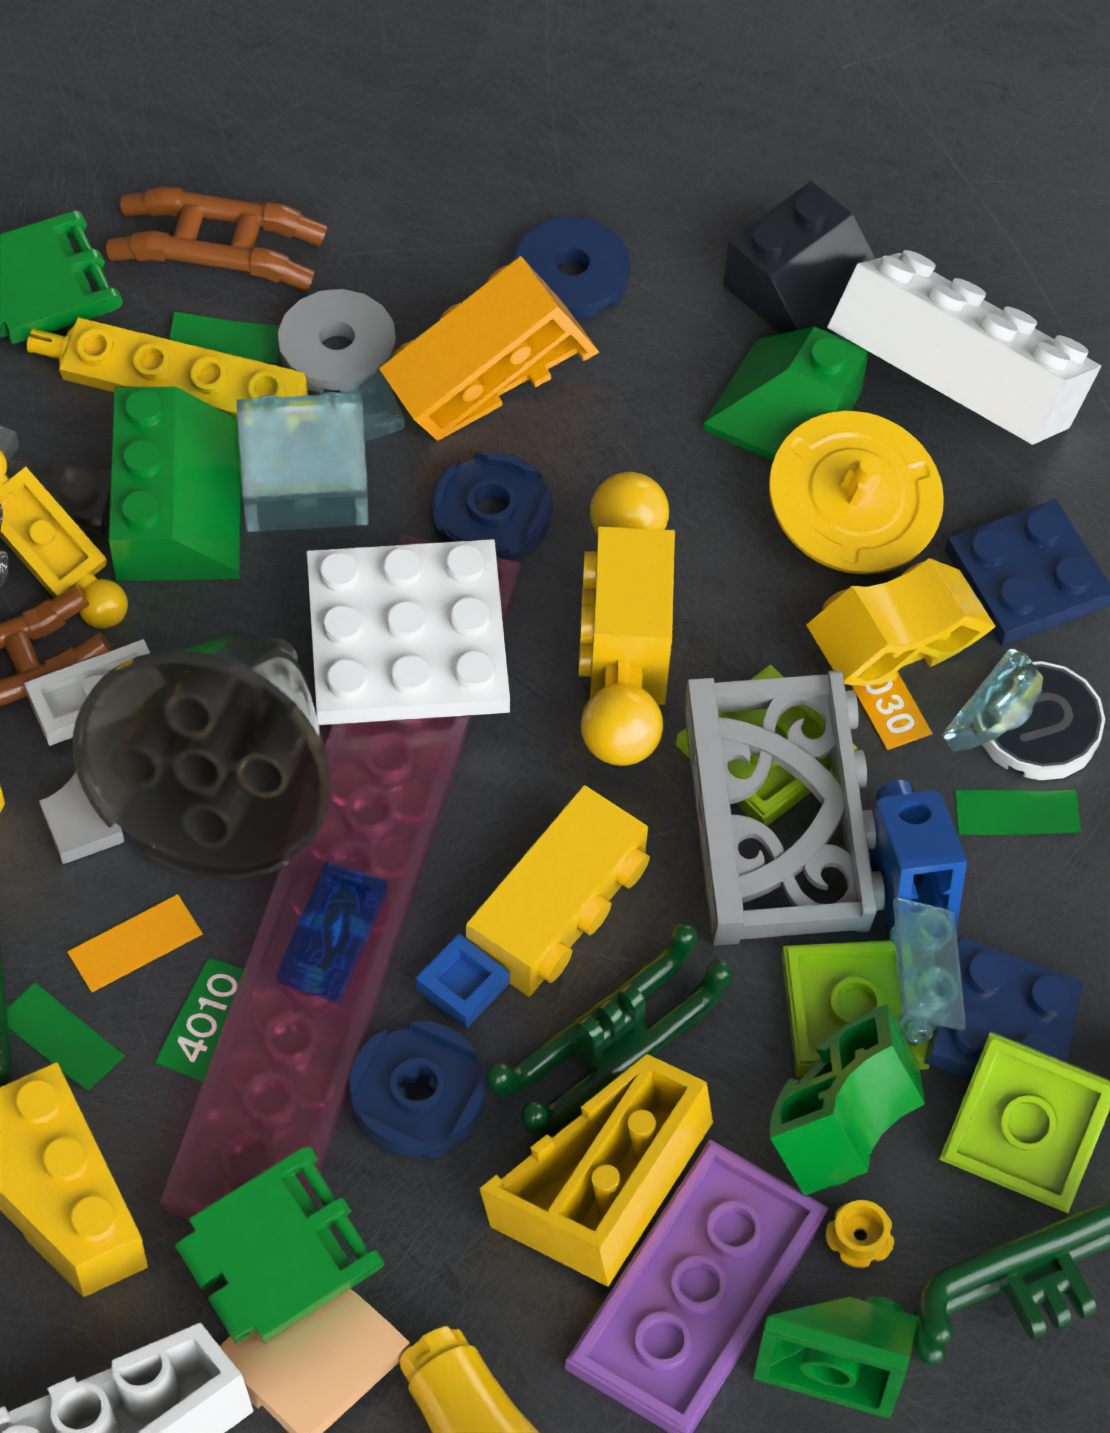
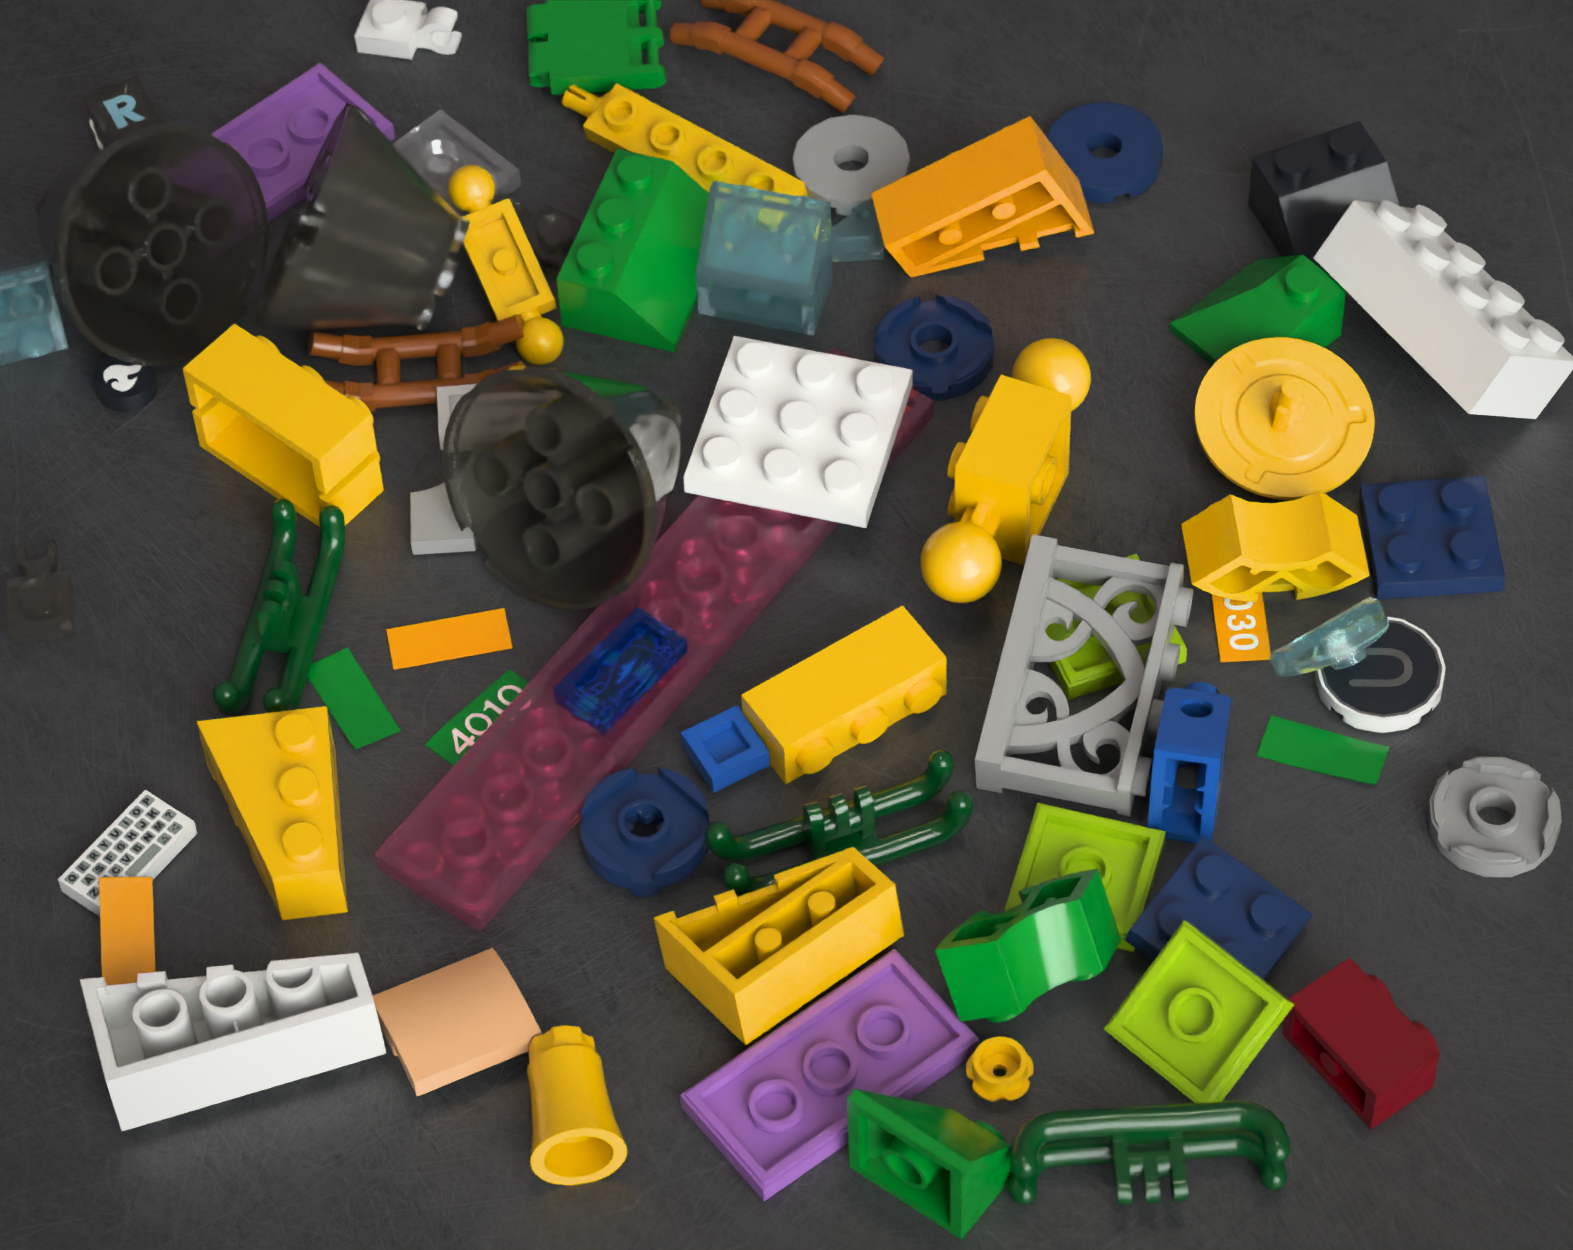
camera: 25 degrees right, 5 degrees down
(235, 338) = (751, 136): green sticker -> none
(275, 1250) = (452, 919): green plate -> none
(927, 969) = (1153, 852): clear light blue hinge -> none

